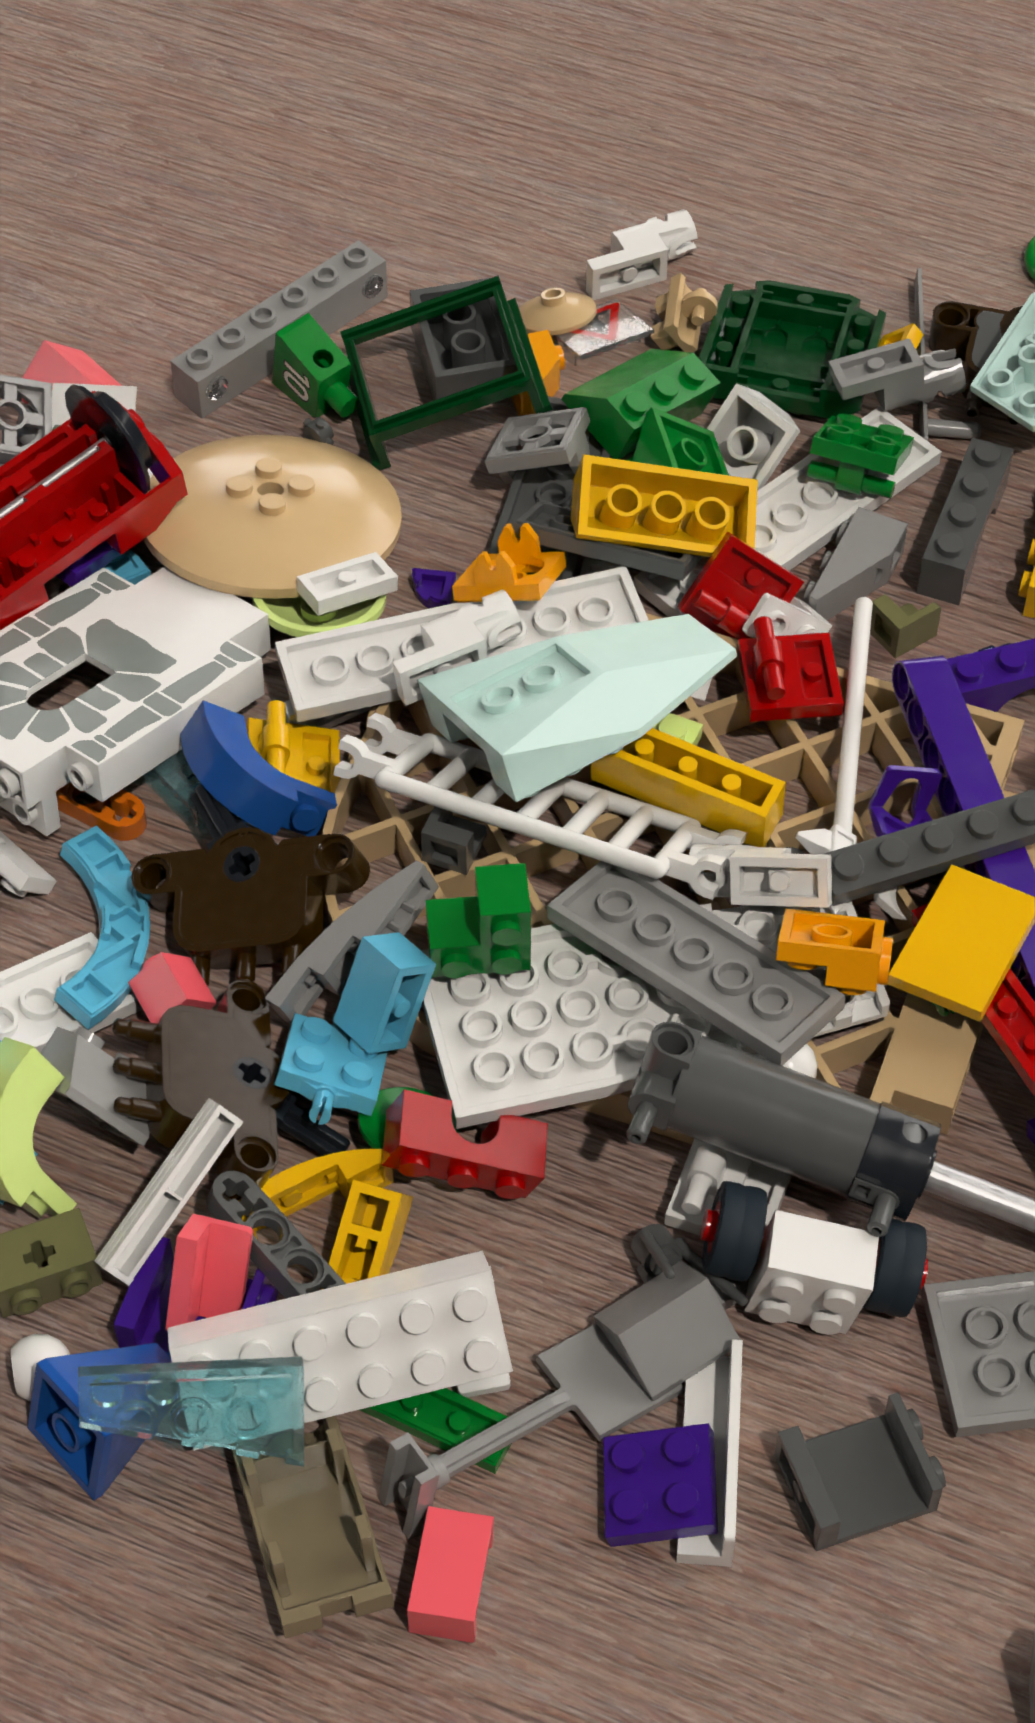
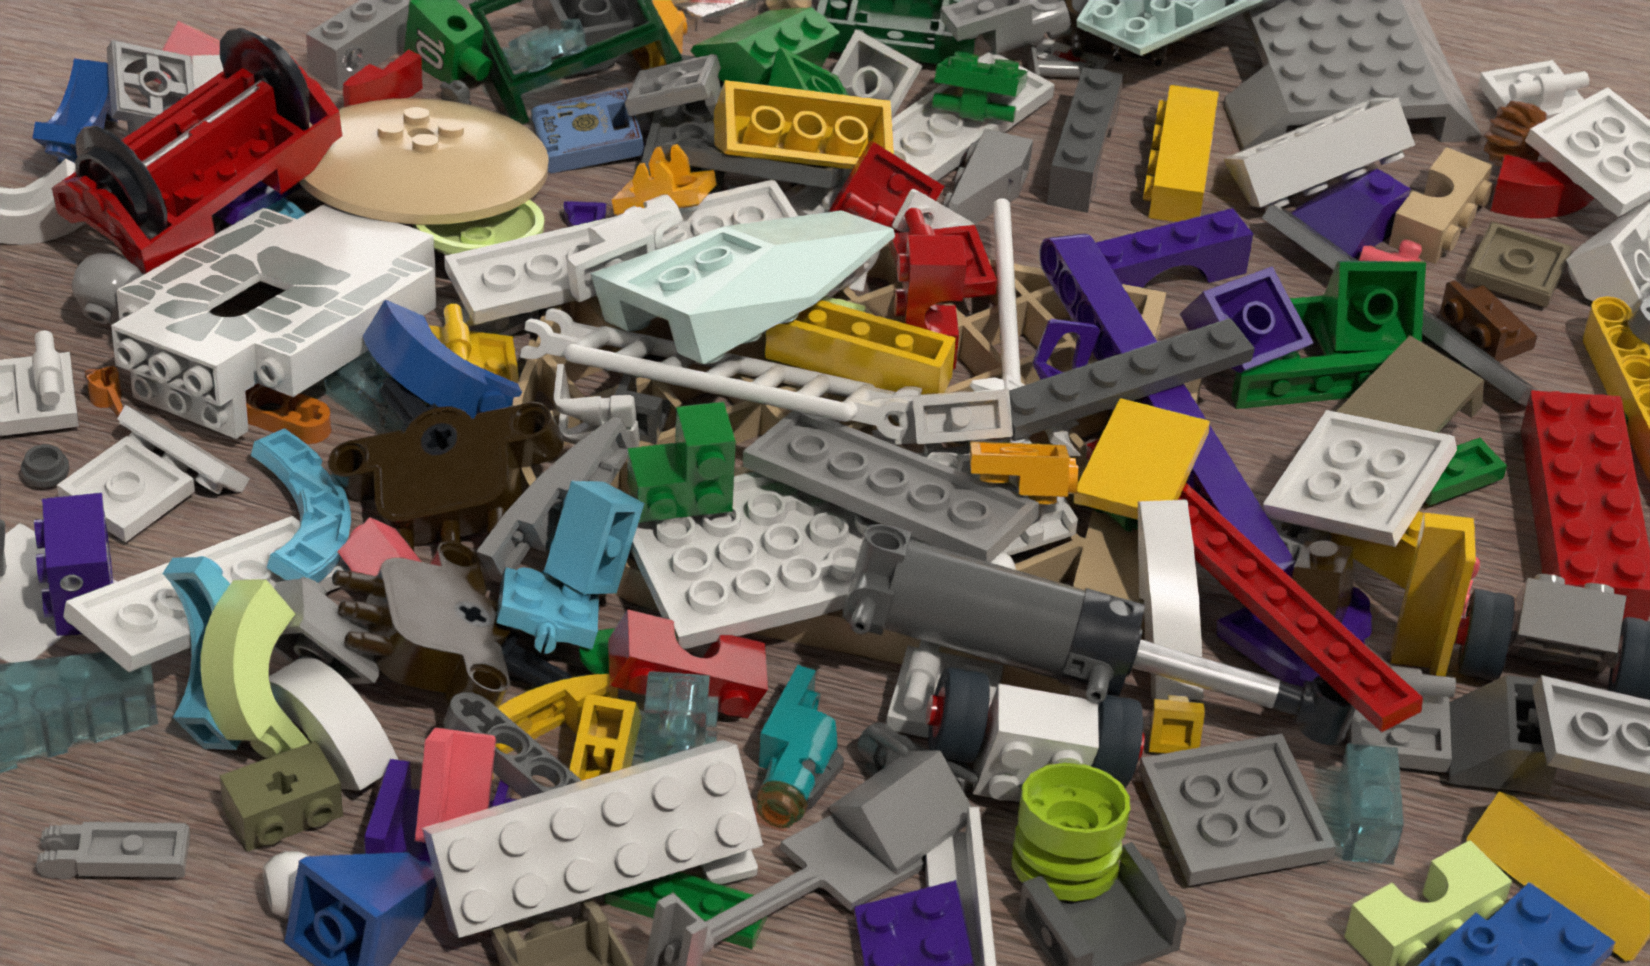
camera: 10 degrees left, 10 degrees down
(88, 1170) = (335, 718): none -> white arch
(168, 1191) = (407, 713): white piece -> none
(218, 1403) = (484, 881): clear light blue wing -> none
(258, 417) = (396, 81): none -> red slope
(347, 583) = (506, 207): white plate -> none
(400, 848) = (592, 411): none -> white piece
(408, 389) = (539, 45): none -> clear light blue plate
(438, 484) = (582, 132): none -> medium blue container
(445, 1214) = (677, 714): none -> clear light blue brick
(569, 1249) = (798, 752): none -> teal plate
(766, 724) = (931, 274): none -> red arch
(835, 1374) = (1071, 830): none -> lime wheel
(903, 627) = (1033, 226): olive panel -> none
(954, 409) = (1056, 51): none -> white sticker
(967, 1247) = (1176, 725): none -> yellow tile
(976, 1090) = (1169, 587): none -> white slope

